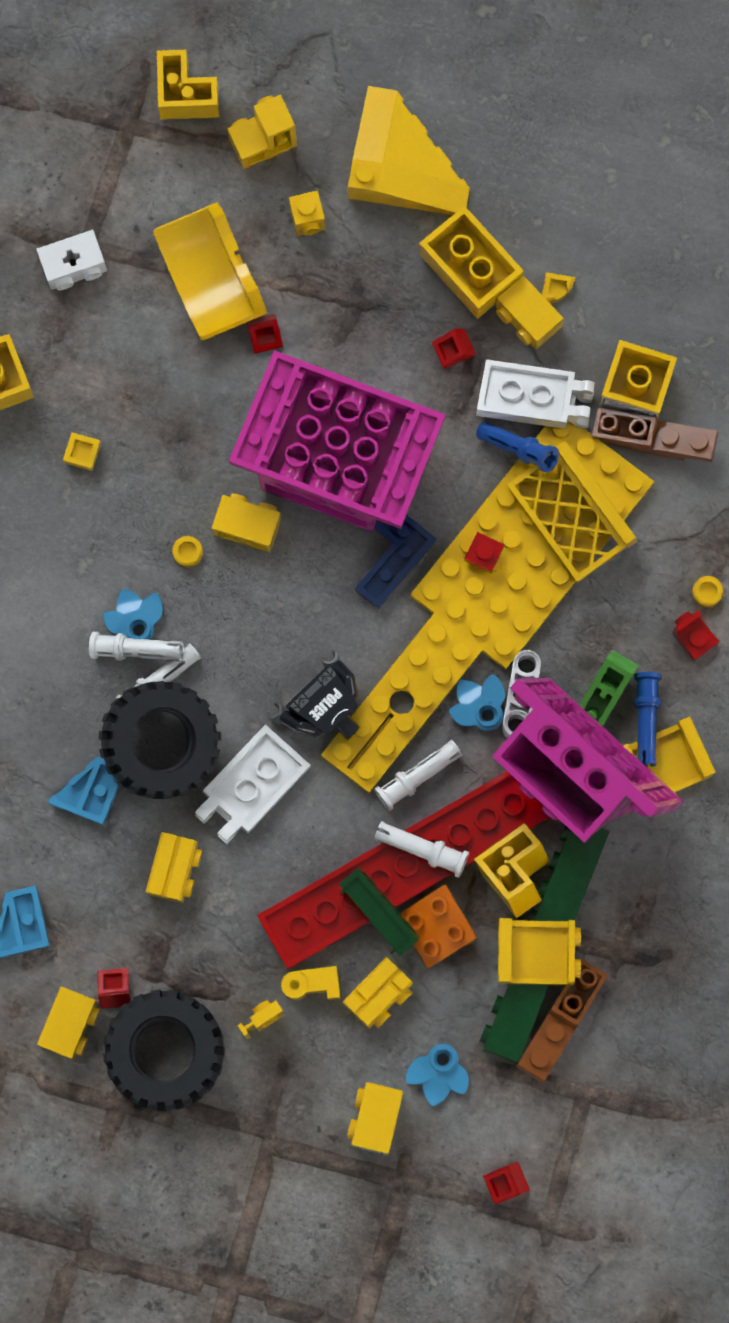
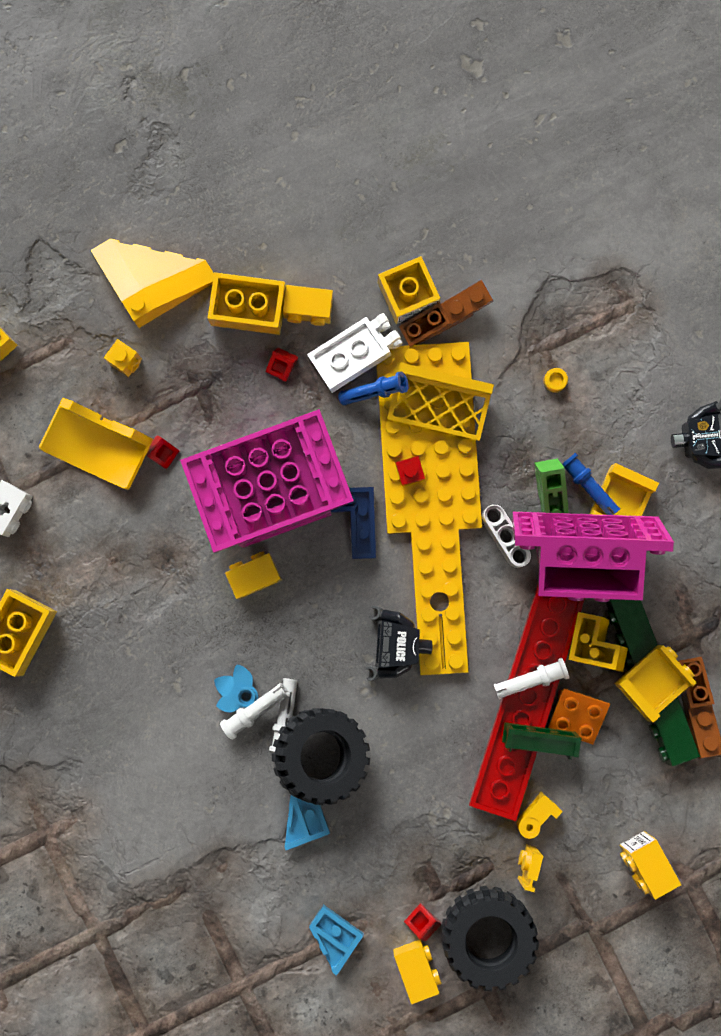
camera: 45 degrees left, 5 degrees up
(82, 451) = (115, 619): yellow plate -> none
(173, 868) = (394, 821): yellow brick -> none
(187, 551) = (232, 623): yellow tile -> none
(252, 783) = (395, 728): white tile -> none
(264, 135) = (54, 332): yellow brick -> none
(378, 994) = (581, 787): yellow brick -> none
(408, 781) = (485, 647): white pin -> none
(438, 1079) = (657, 804): dark azure plate -> none
(476, 700) = (480, 562): dark azure plate -> none
(556, 286) = (309, 275): yellow tile -> none
(694, 635) = (571, 412): red bracket -> none

